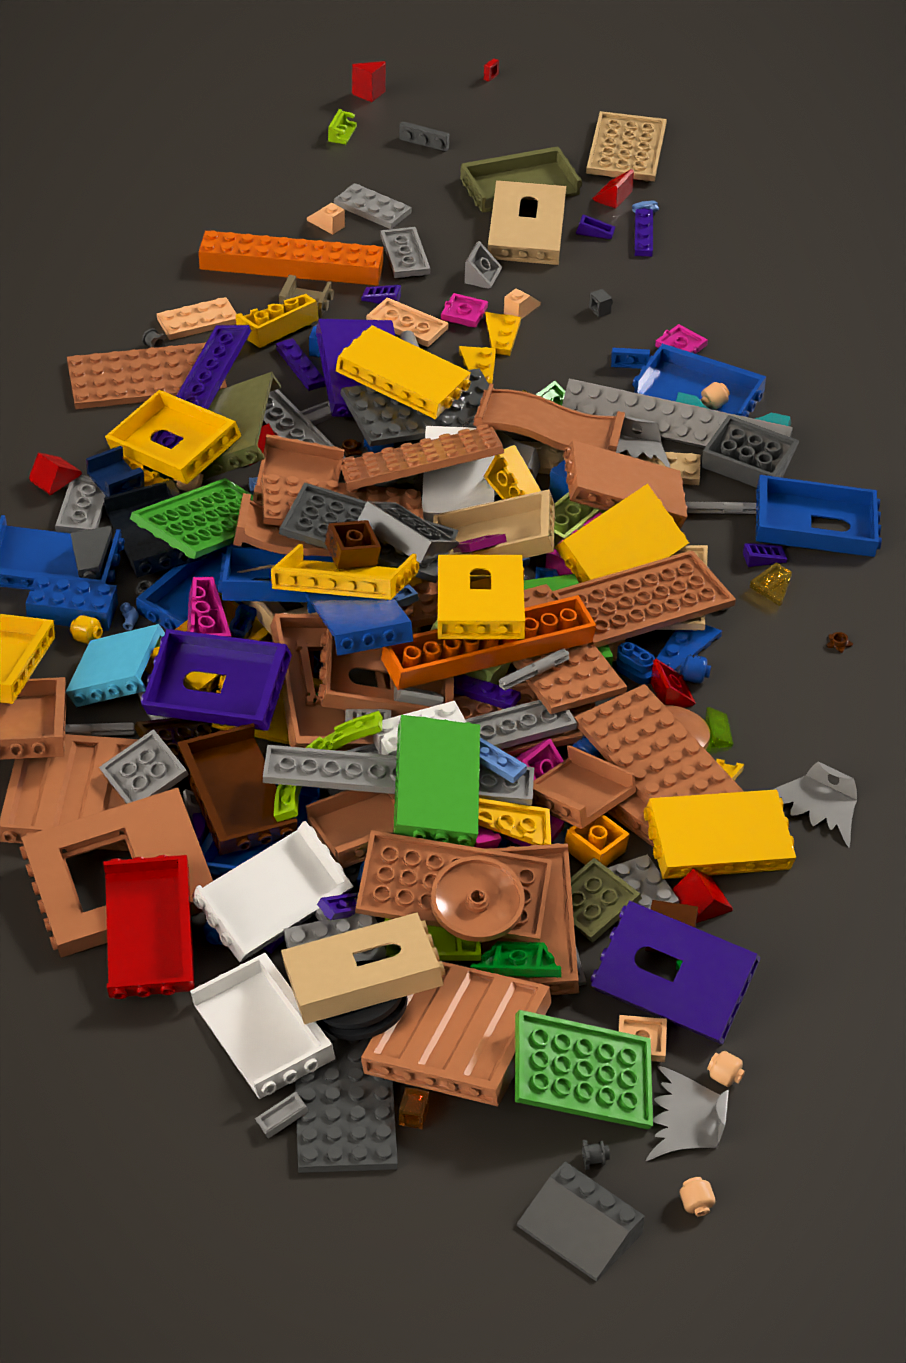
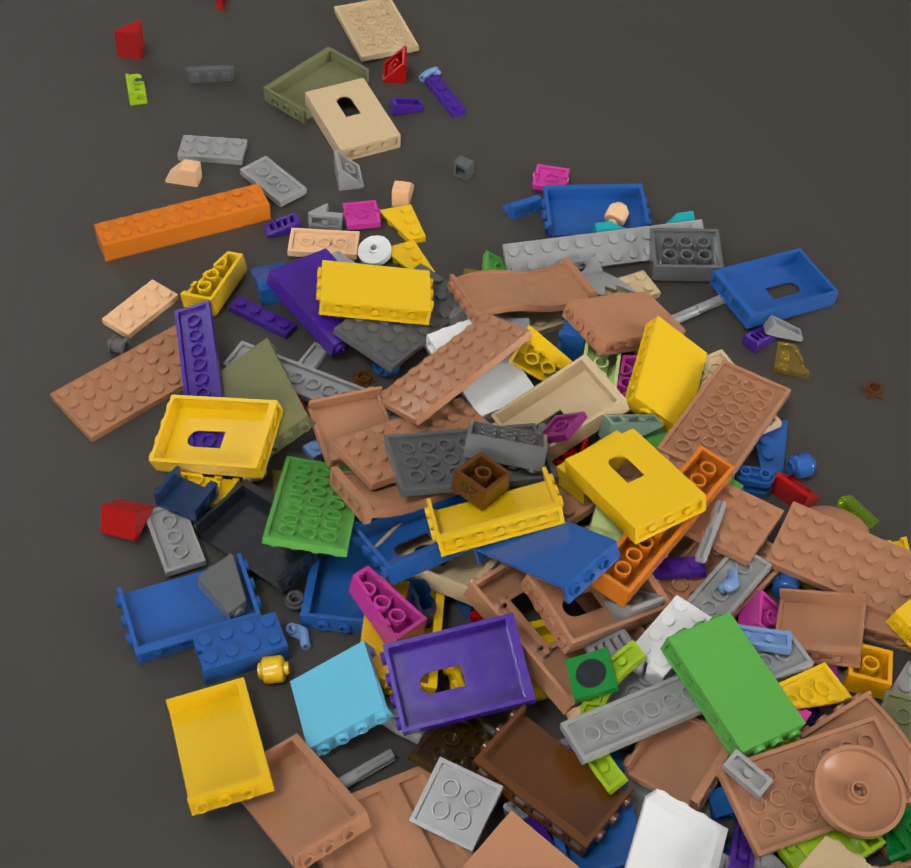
camera: 30 degrees left, 5 degrees up
(290, 291) = (211, 254): dark tan panel -> none
(327, 726) = (592, 675): none -> green tile
(389, 843) = (746, 774): none -> light grey plate
(426, 300) = (324, 219): none -> light grey slope
(449, 344) = (378, 256): none -> white plate
(521, 719) = (731, 583): none -> medium blue arm
(544, 566) = (623, 422): none -> sand green slope
(792, 554) = (782, 329): none -> light grey slope

